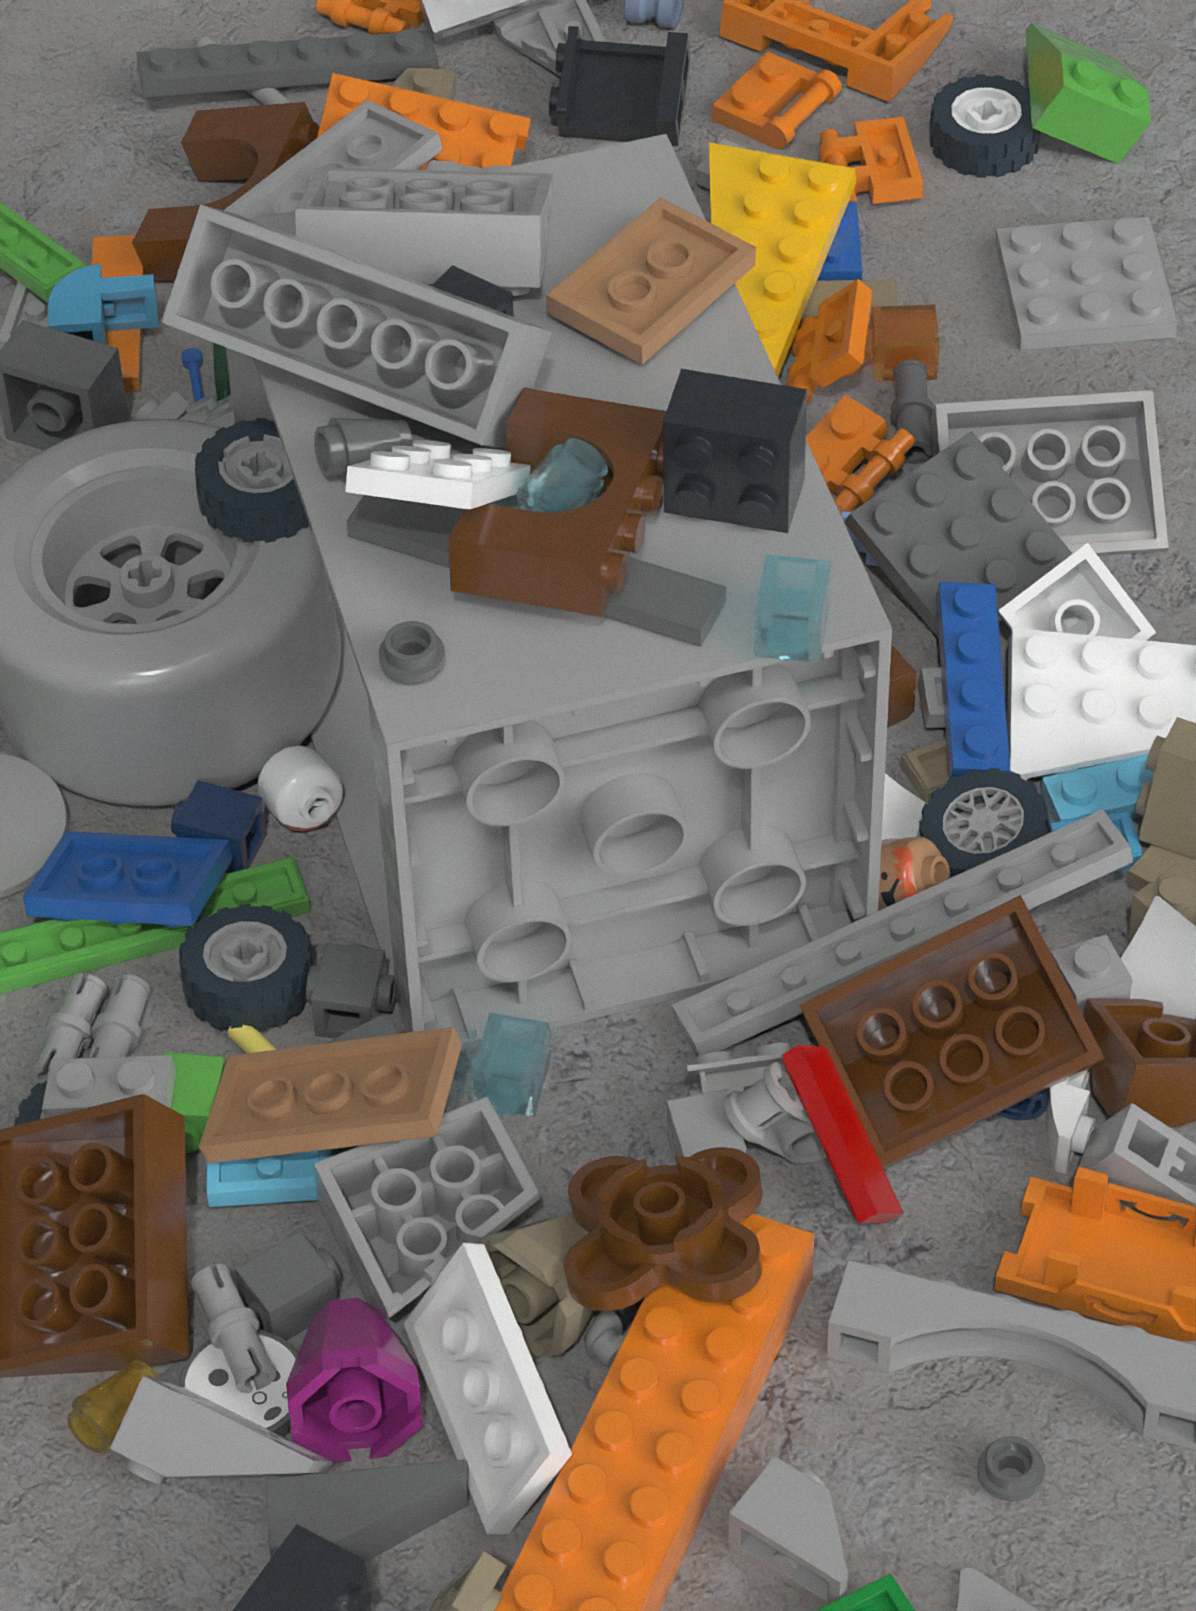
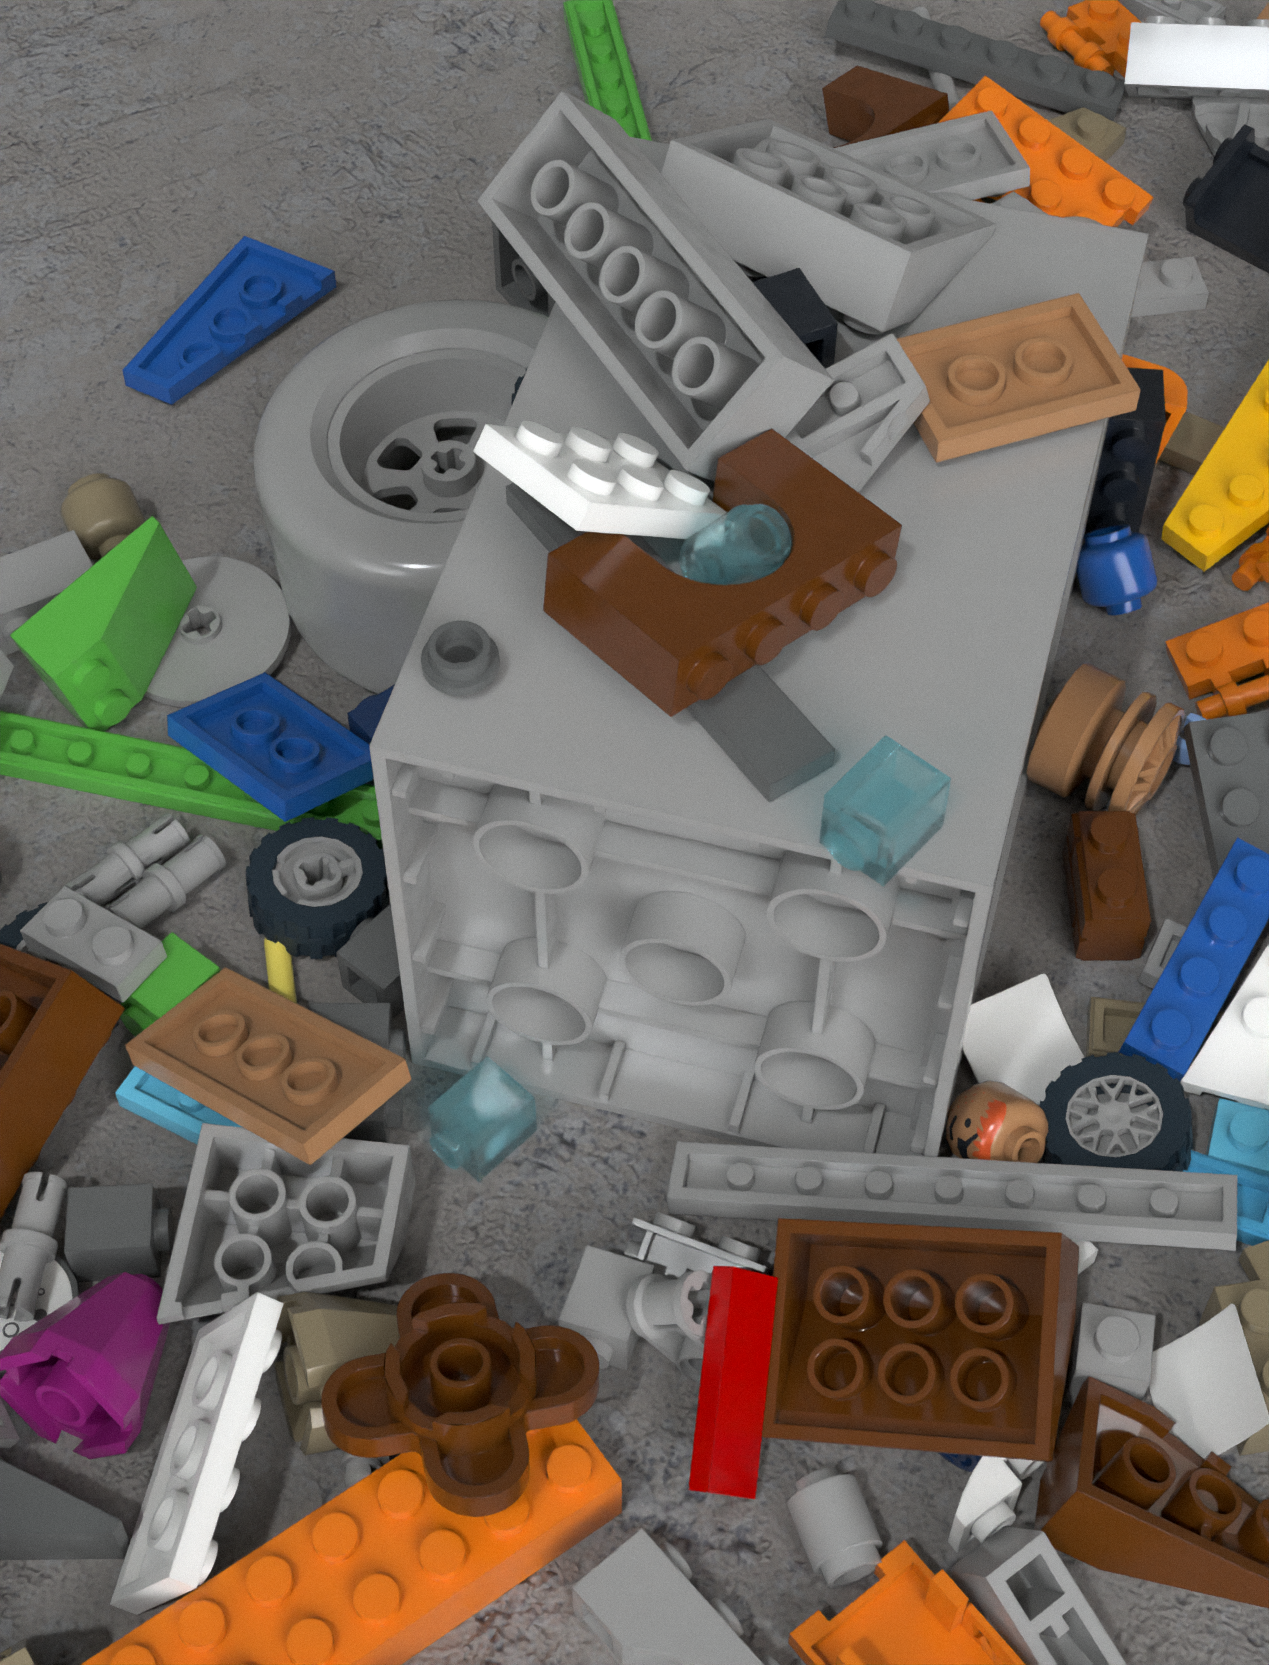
camera: 30 degrees right, 5 degrees up
(353, 440) = (574, 403): dark grey cone -> none
(579, 344) = (862, 412): none -> light grey wing
(734, 450) = (939, 600): black brick -> none
(976, 1195) = (835, 1527): none -> light grey brick

